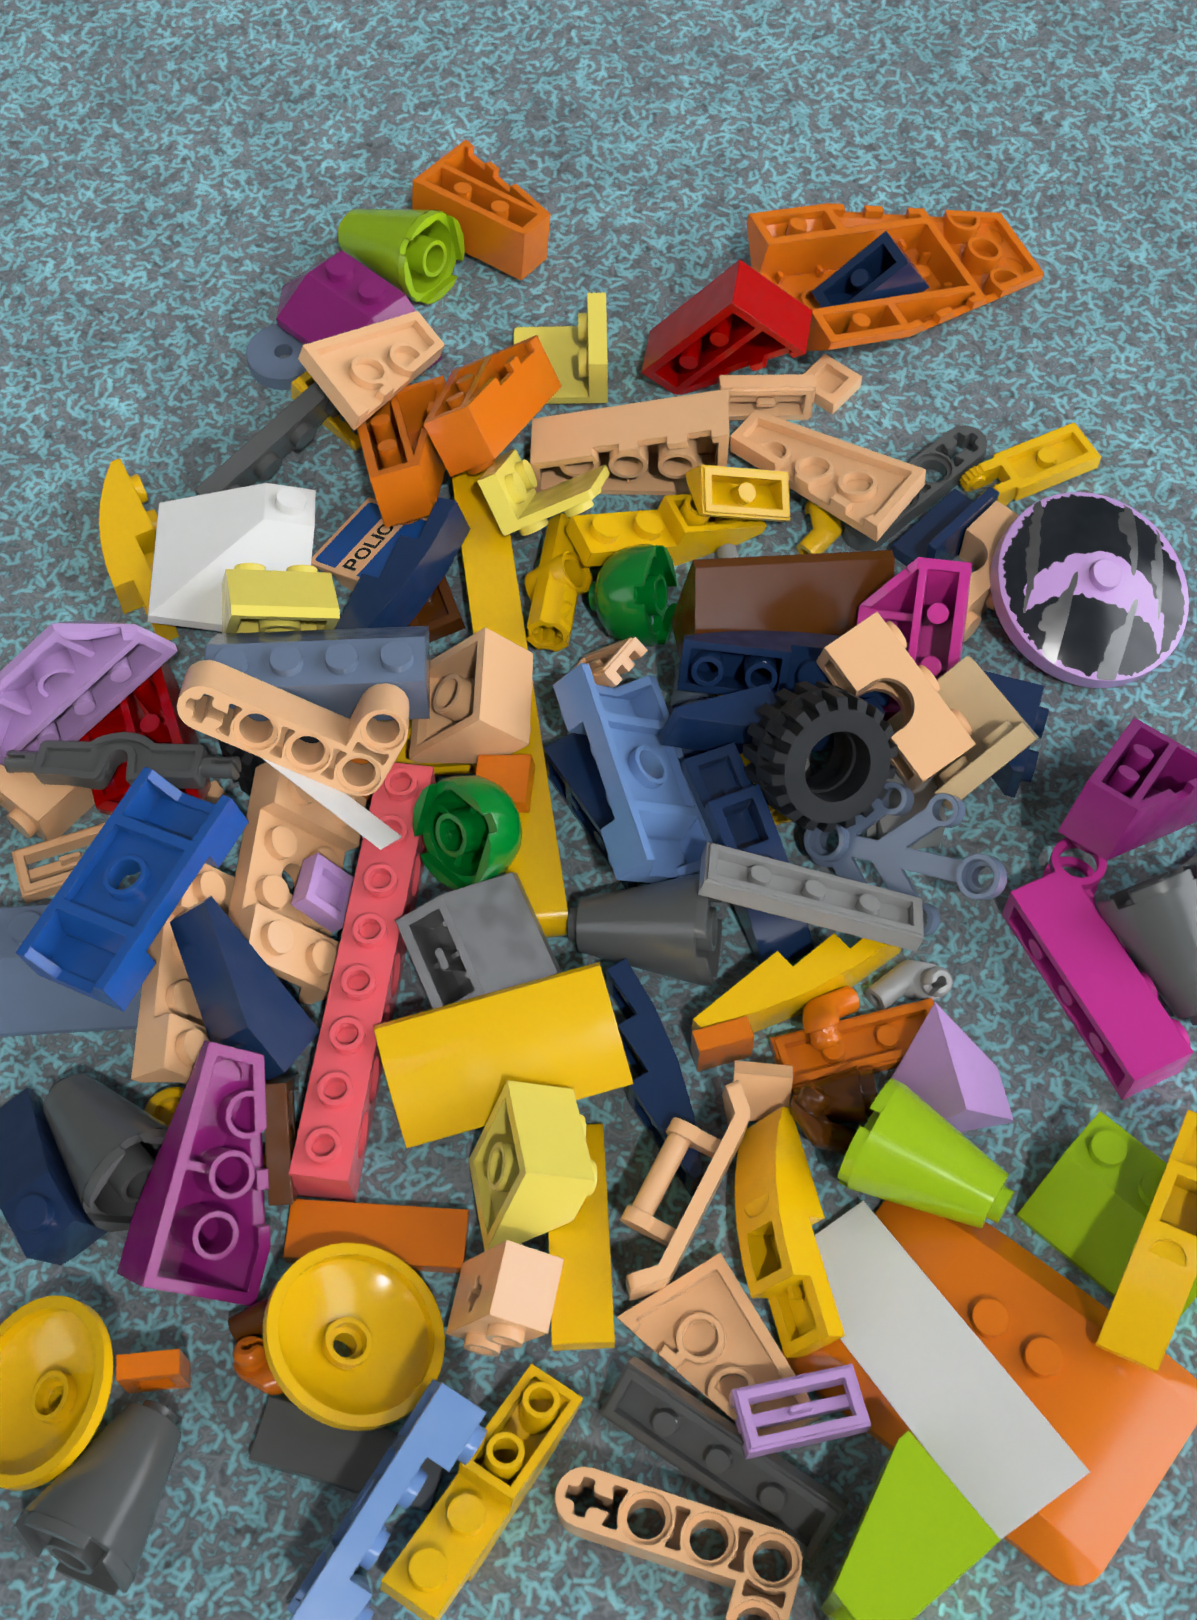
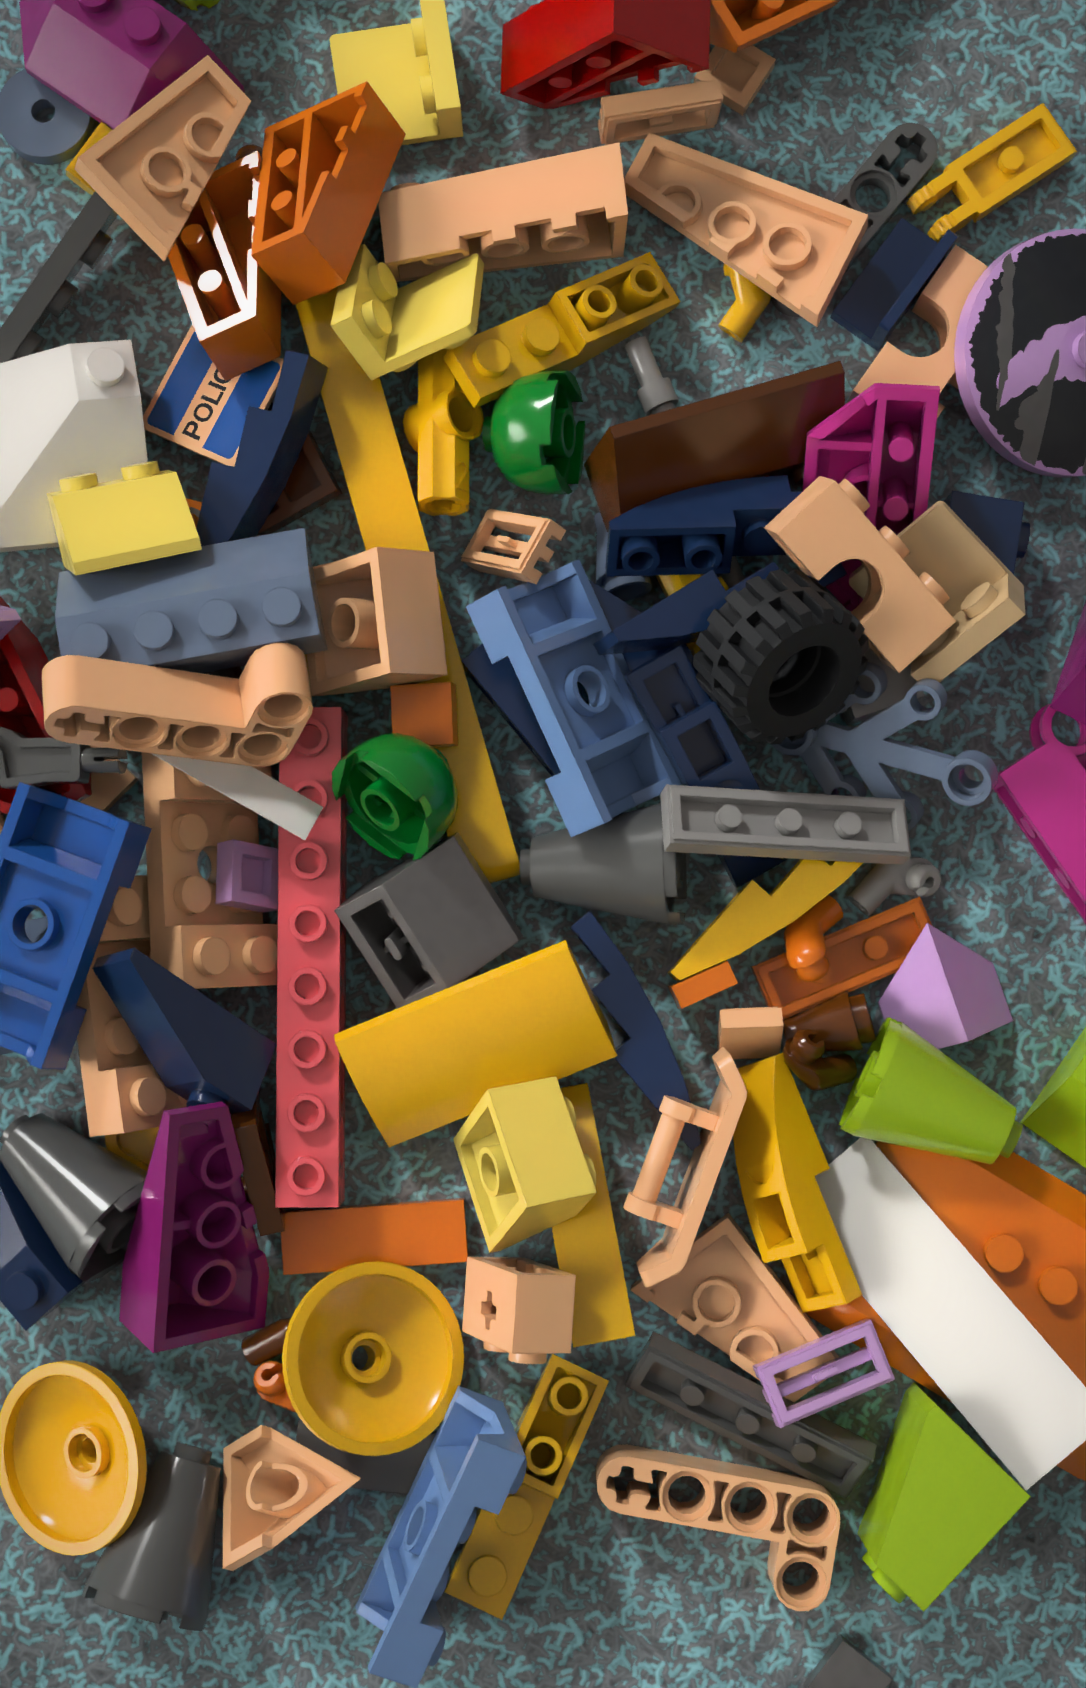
camera: 10 degrees left, 25 degrees up
(153, 1371) = (179, 1412): orange tile -> none
(228, 1460) = (272, 1491): none -> light nougat slope
(740, 493) = (646, 275): yellow slope -> none

